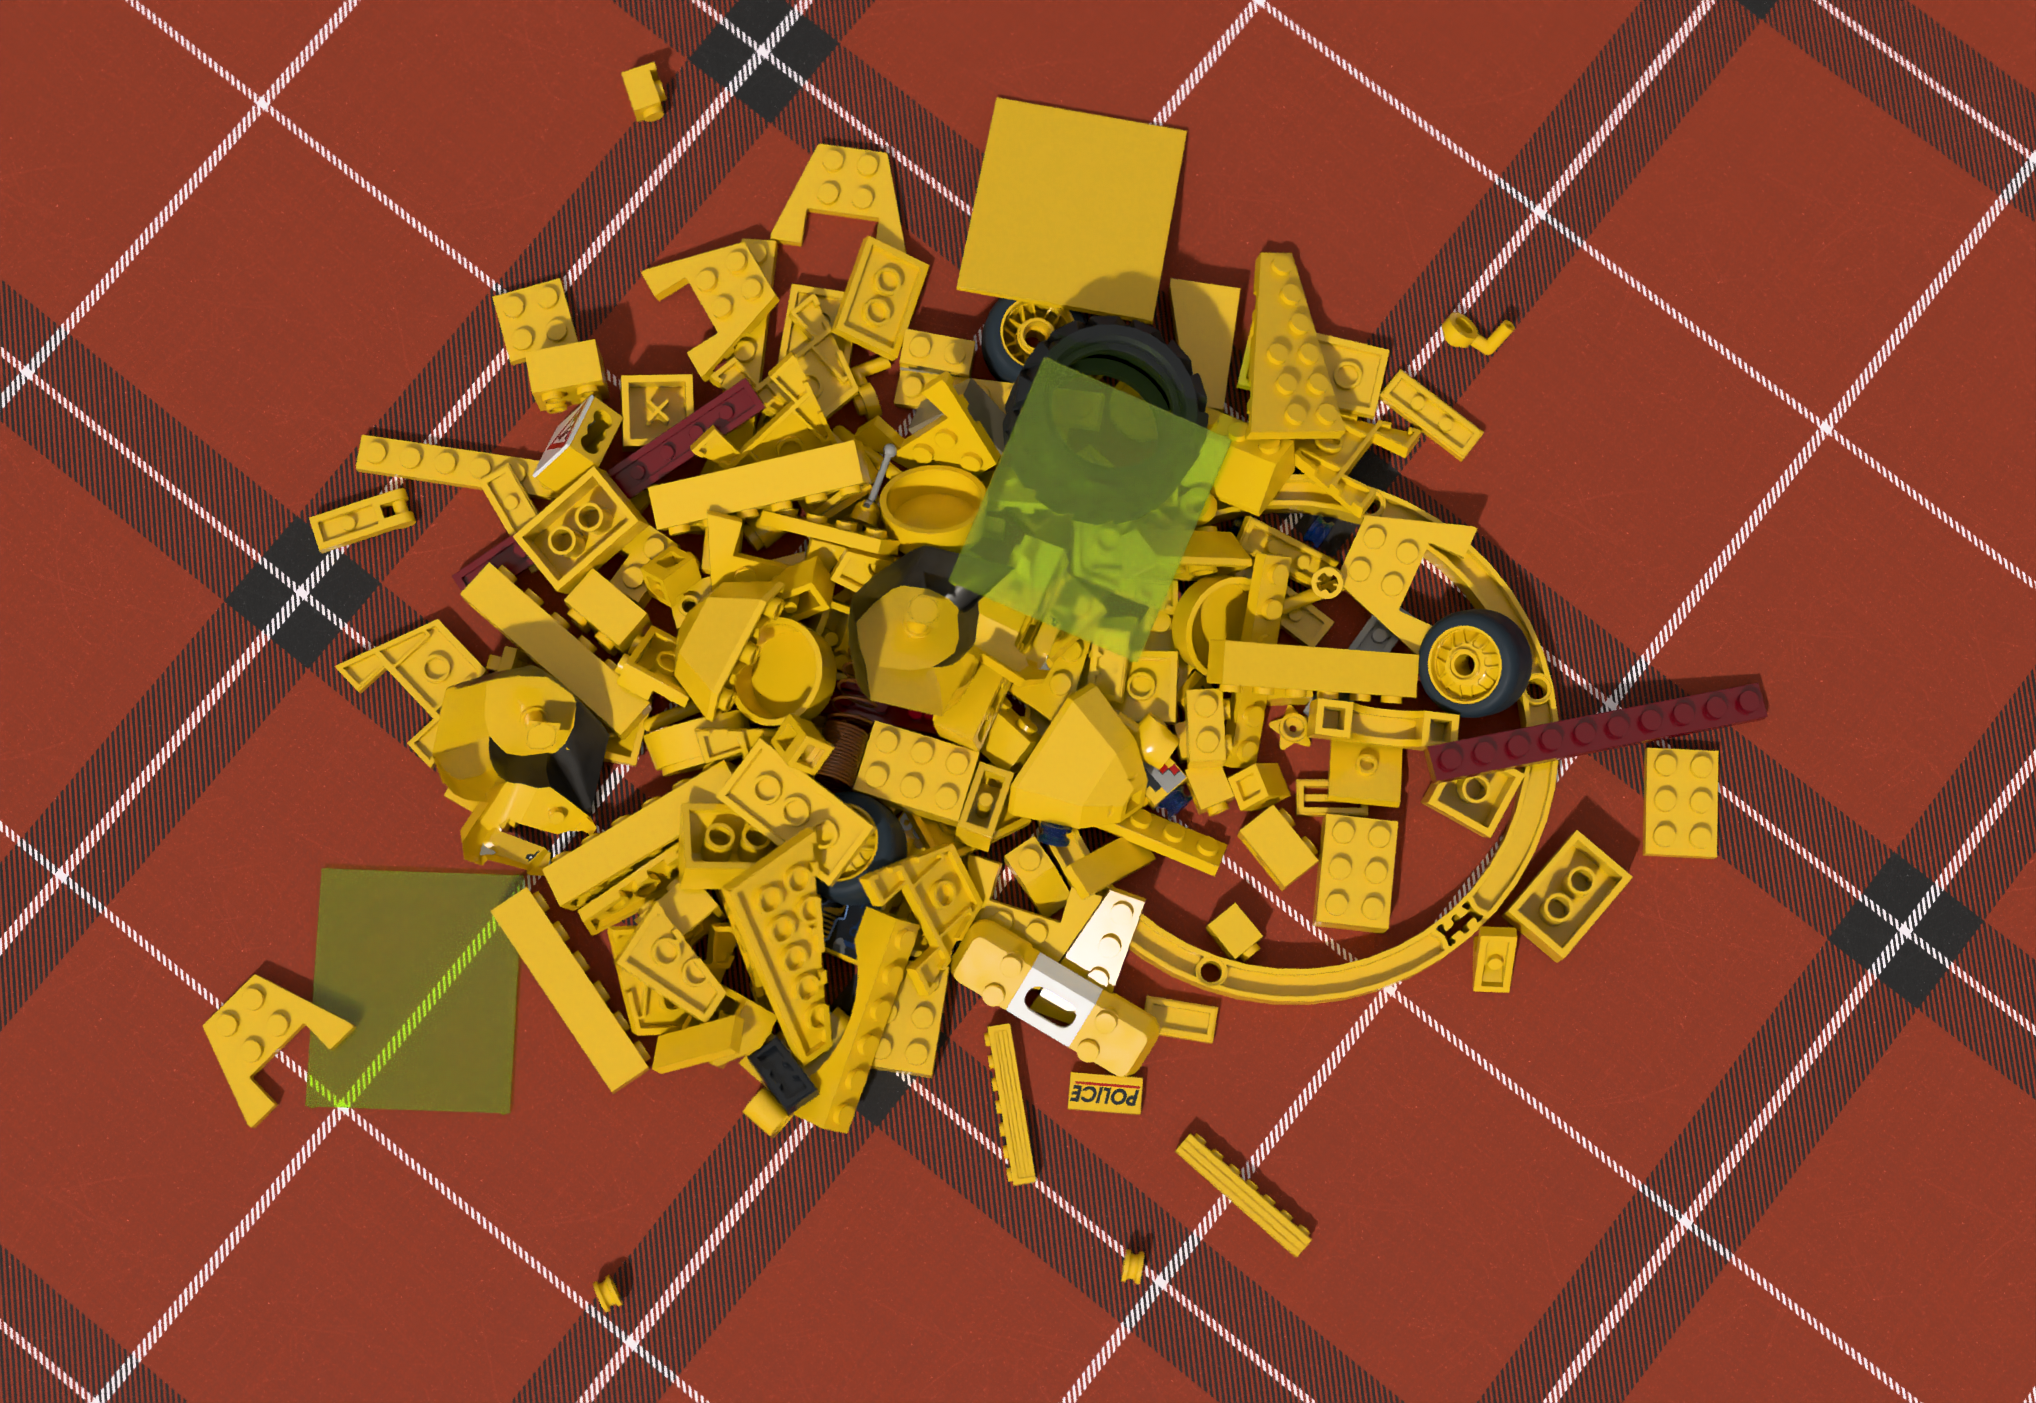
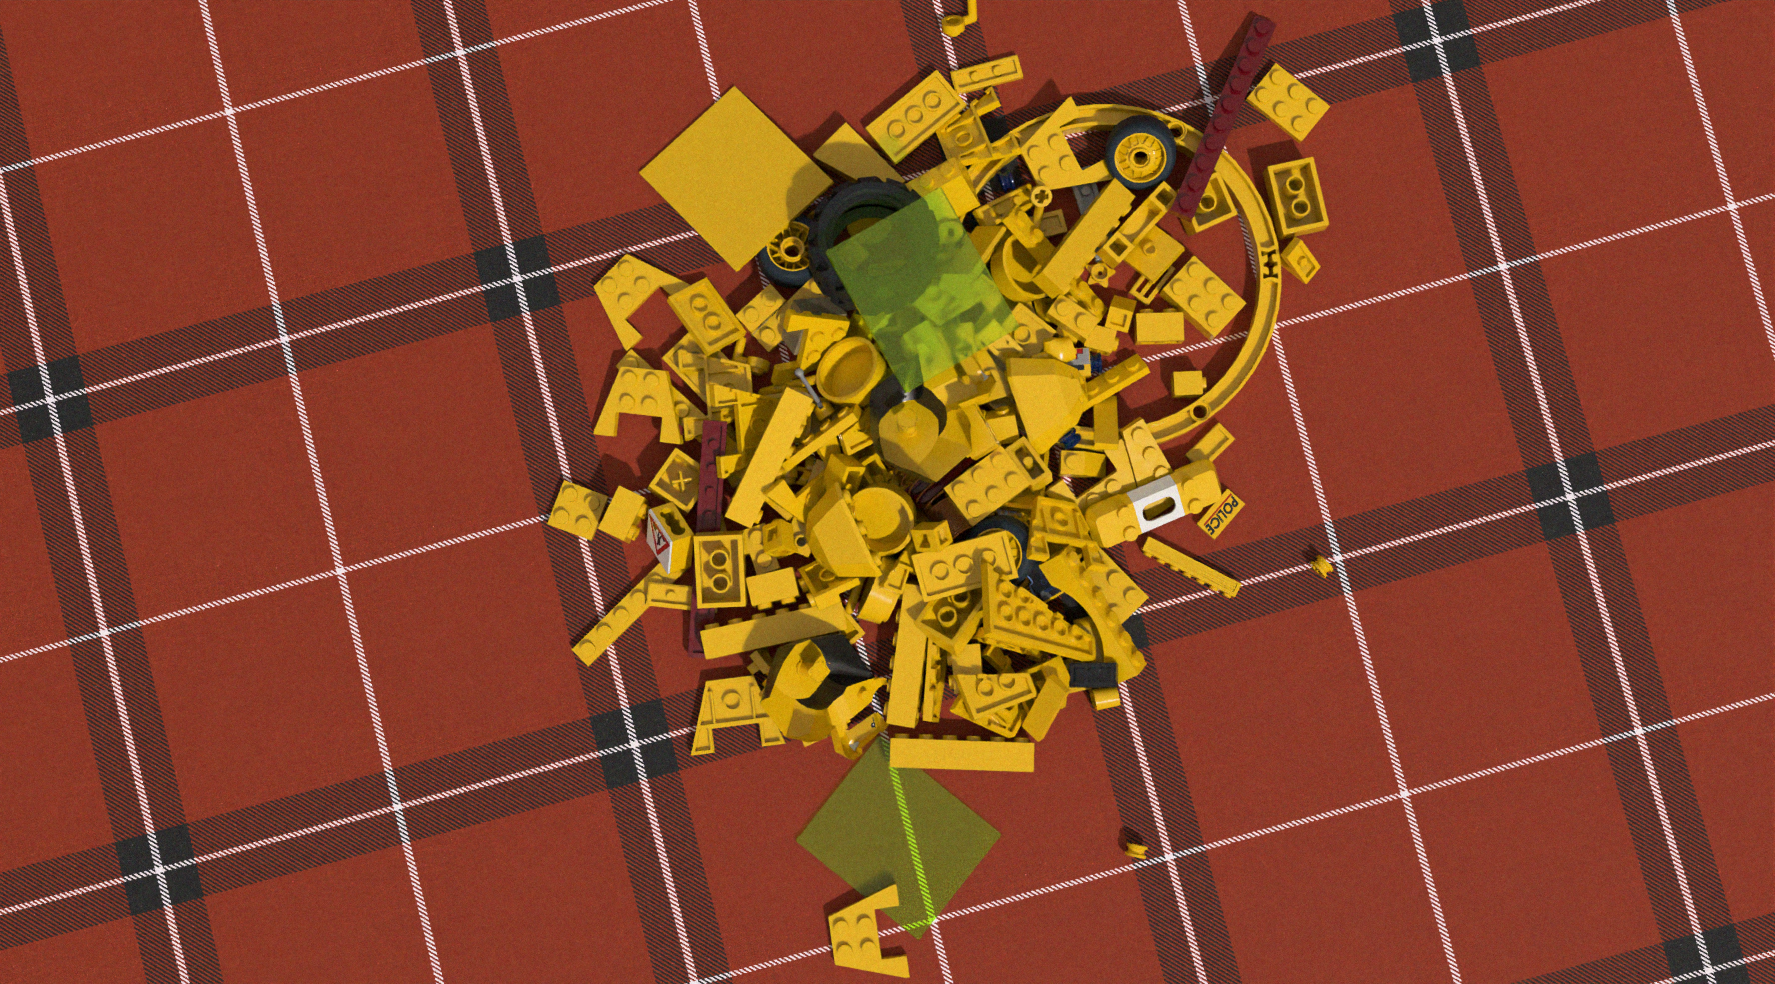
camera: 50 degrees left, 5 degrees up
(361, 520) = (619, 684): yellow plate -> none
(645, 92) = (494, 359): yellow brick -> none
(771, 554) = (809, 463): none -> yellow piece
(1244, 1194) = (1325, 481): yellow piece -> none
(1286, 366) = (907, 128): yellow wing -> none

